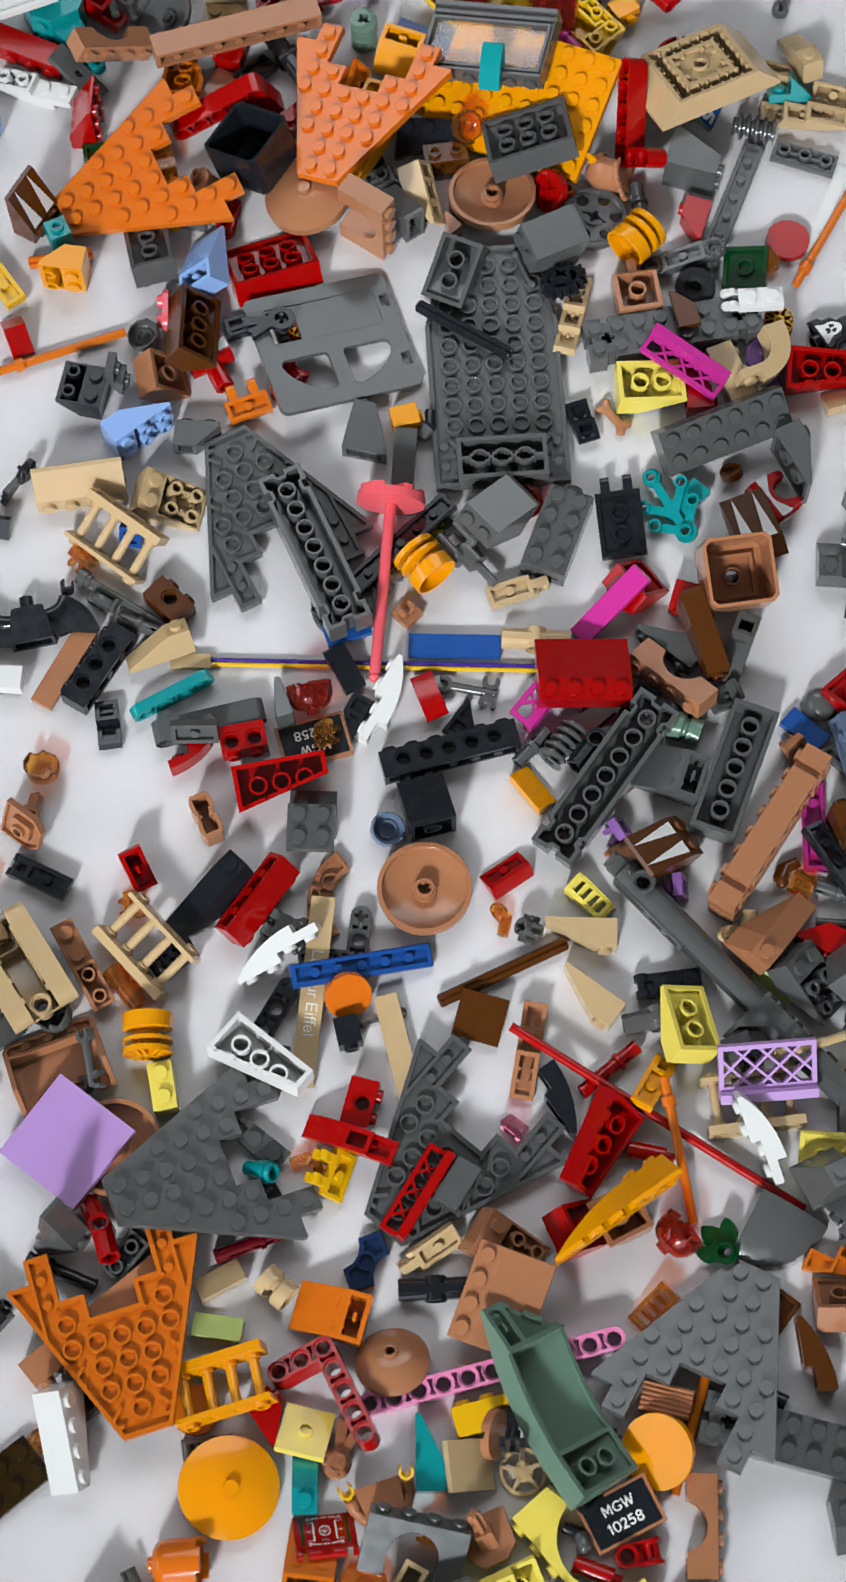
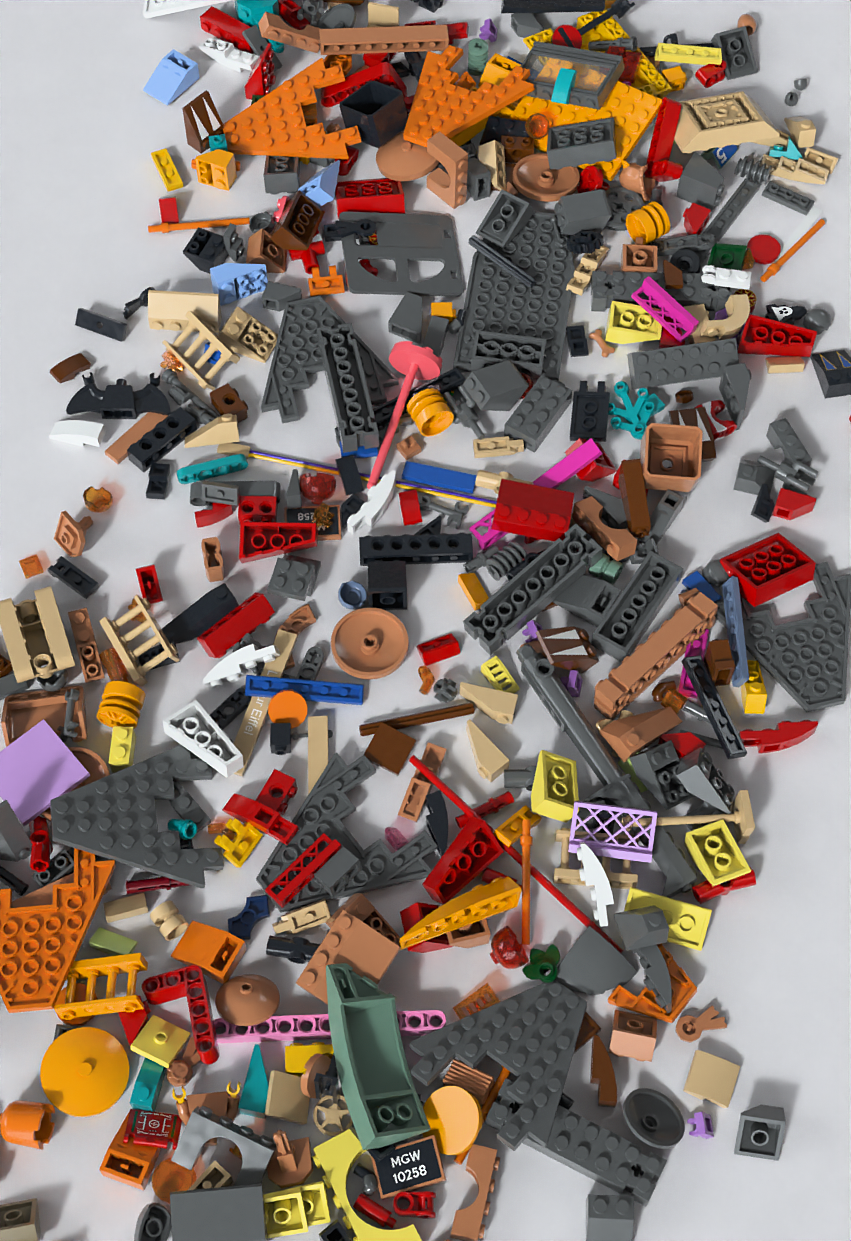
camera: 10 degrees right, 10 degrees down
(676, 977) = (527, 747): black plate -> none

